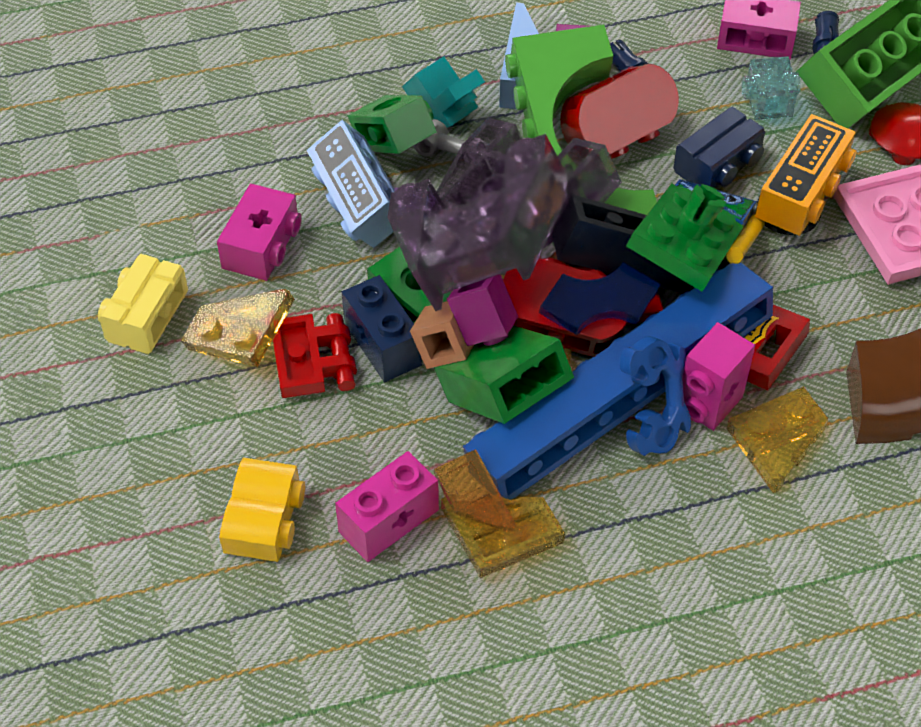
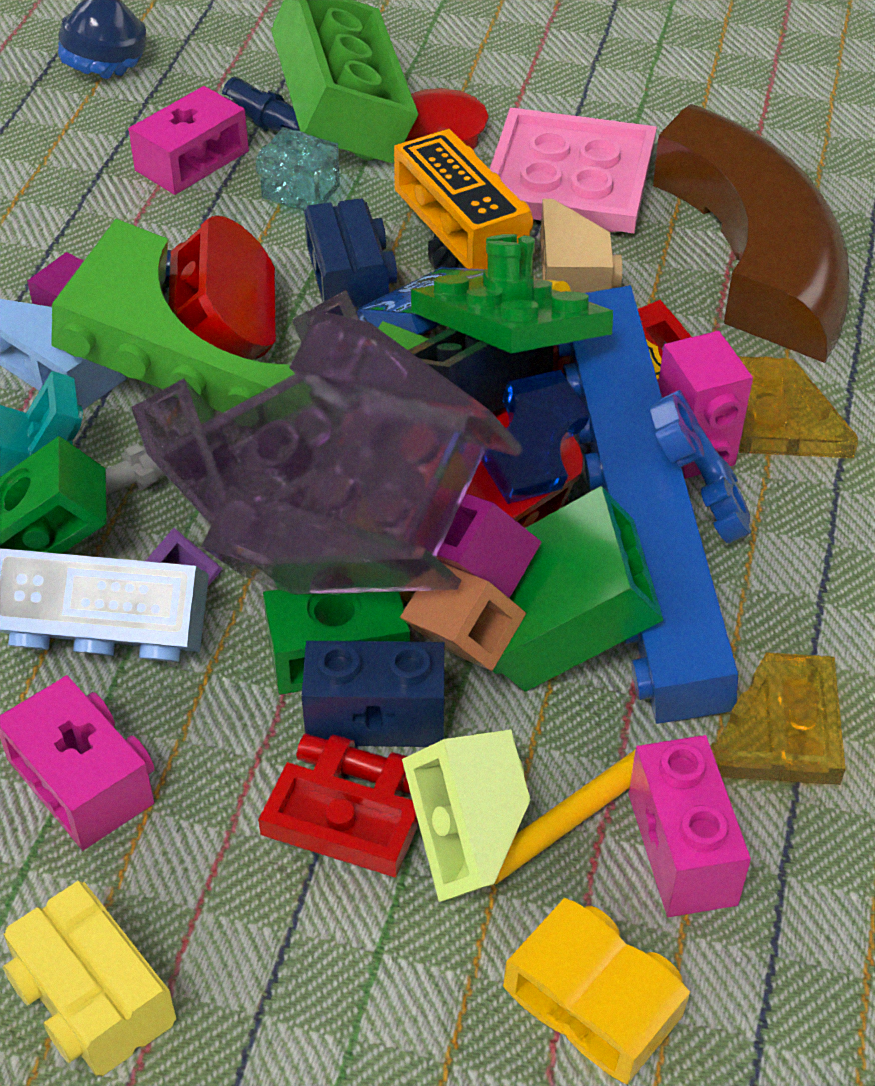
camera: 60 degrees left, 5 degrees down
(239, 327) = (240, 868): clear yellow wing -> none
(334, 400) = (467, 807): none -> yellowish green slope
(354, 449) = (567, 815): none -> yellow bar
(473, 492) = (737, 708): clear orange tile -> none
(815, 261) = (576, 250): none -> tan slope

